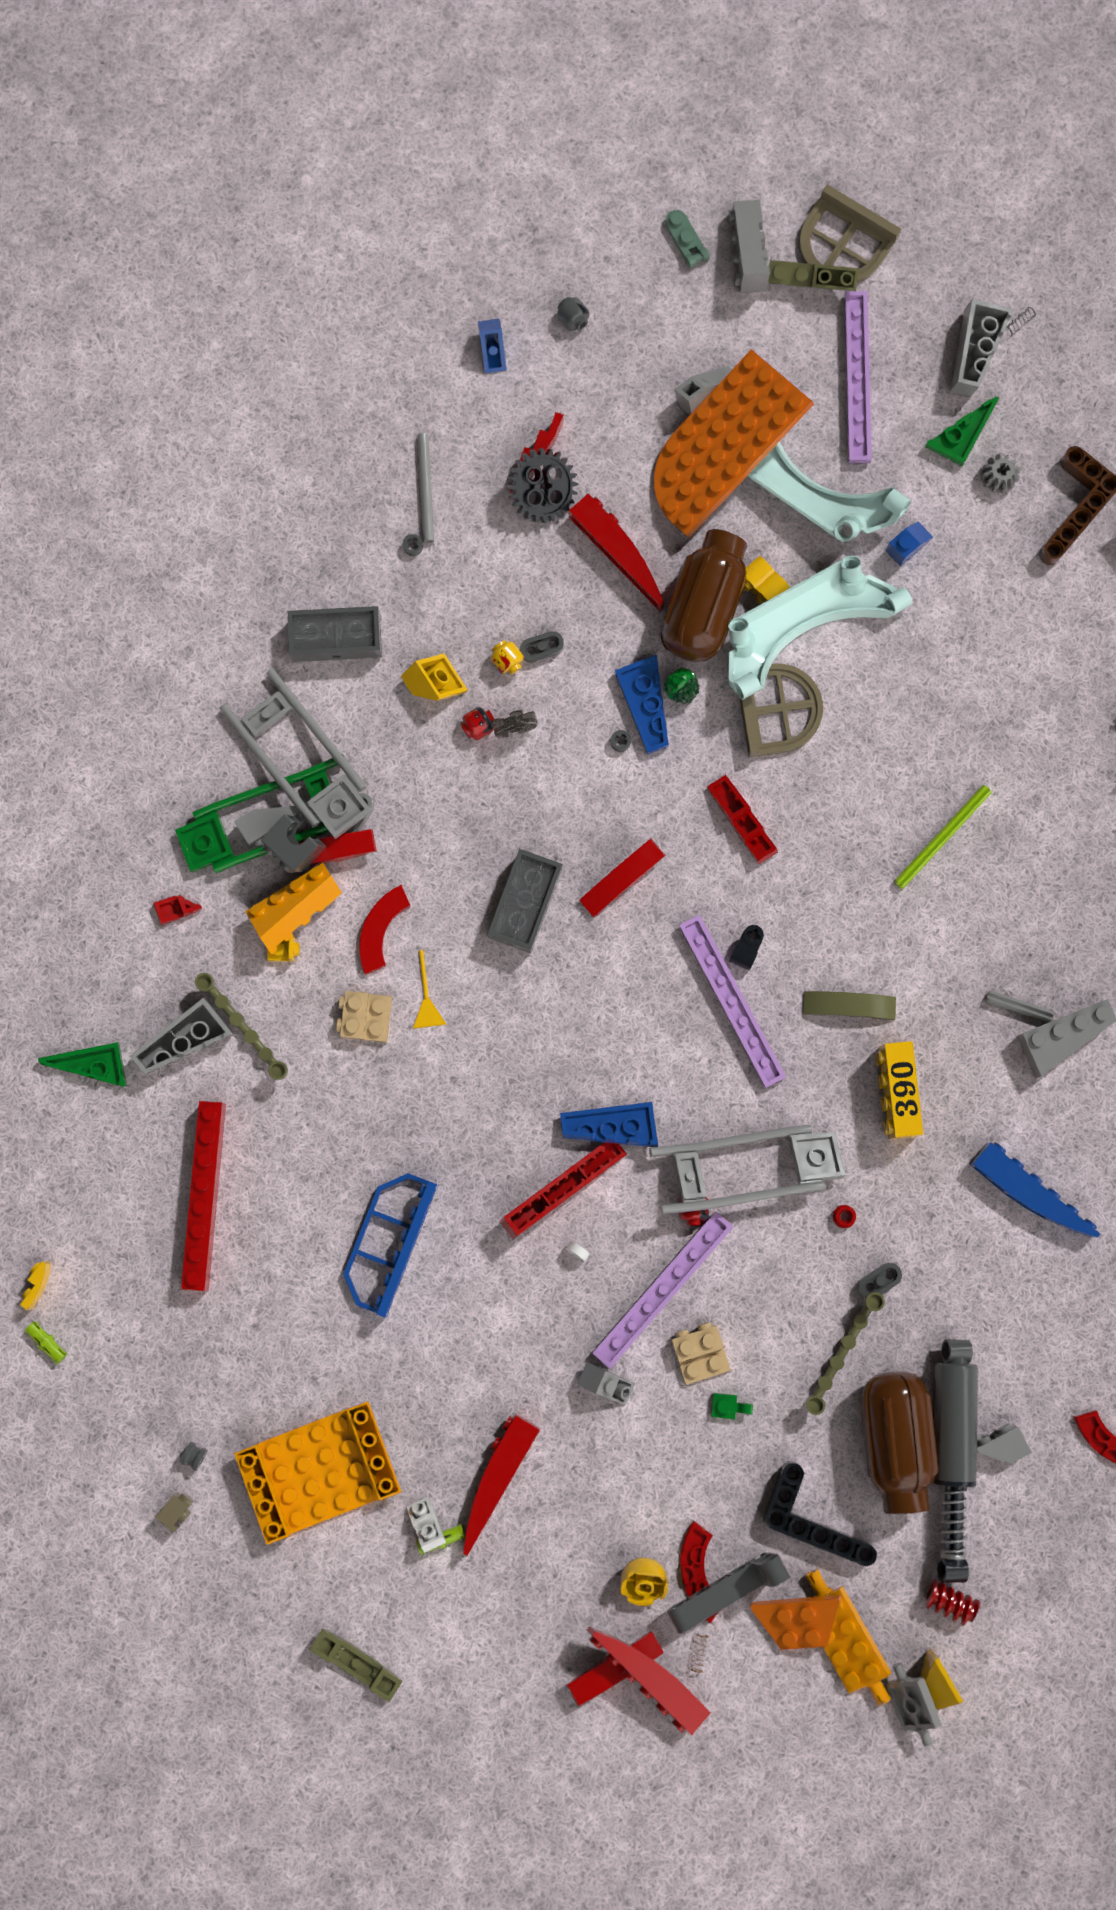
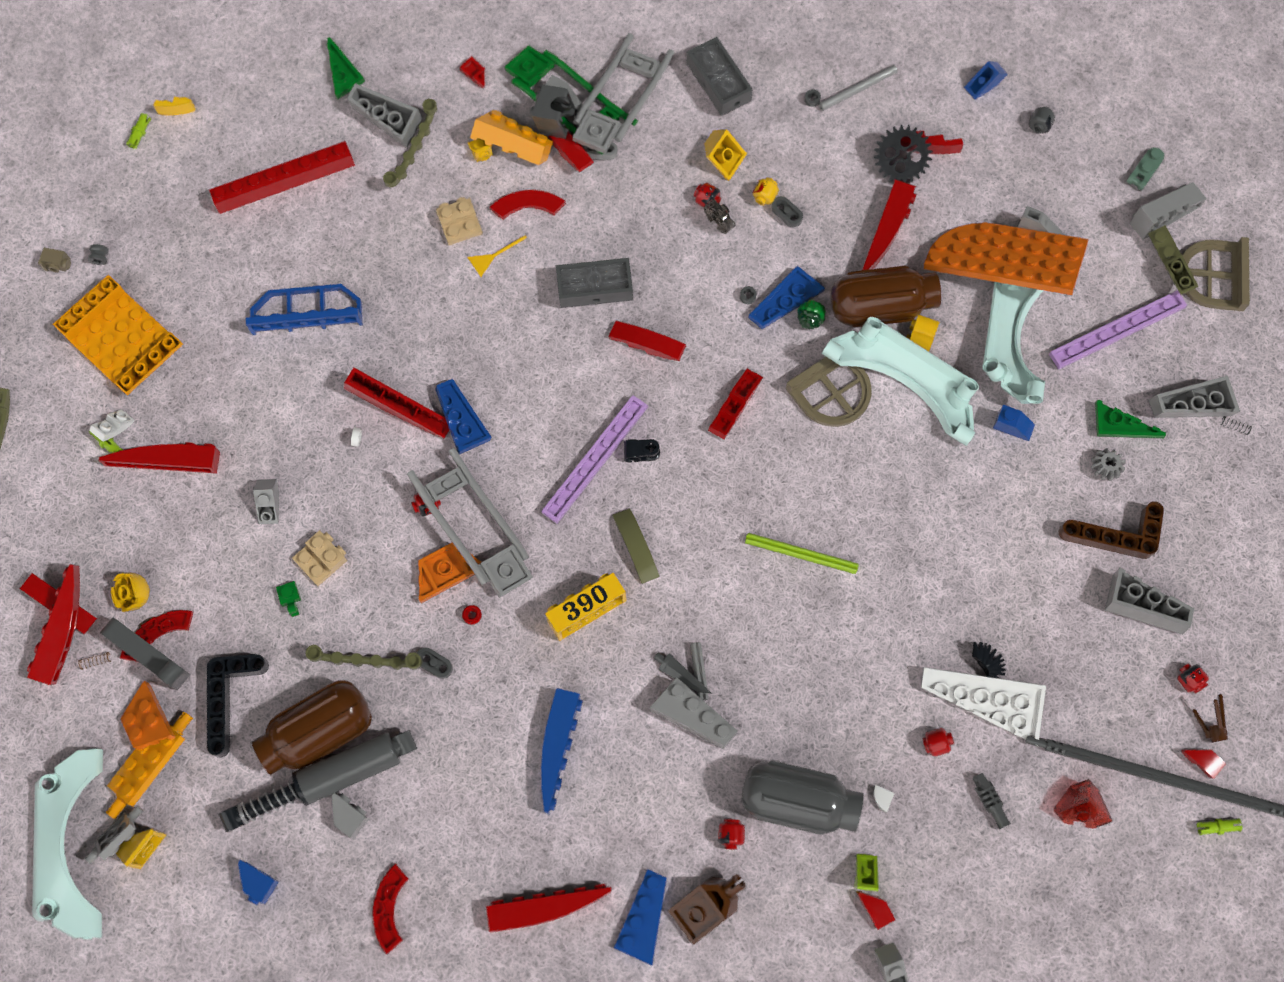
camera: 65 degrees right, 10 degrees down
(662, 1290) = (355, 509): lavender plate -> none
(781, 1225) = (442, 571): none -> orange wing
(862, 1766) = (51, 876): none -> light aqua panel
(952, 1602) = (205, 831): red piece -> none
(1007, 1030) = (674, 669): none -> dark grey bar
(1030, 1572) = (256, 883): none -> blue slope

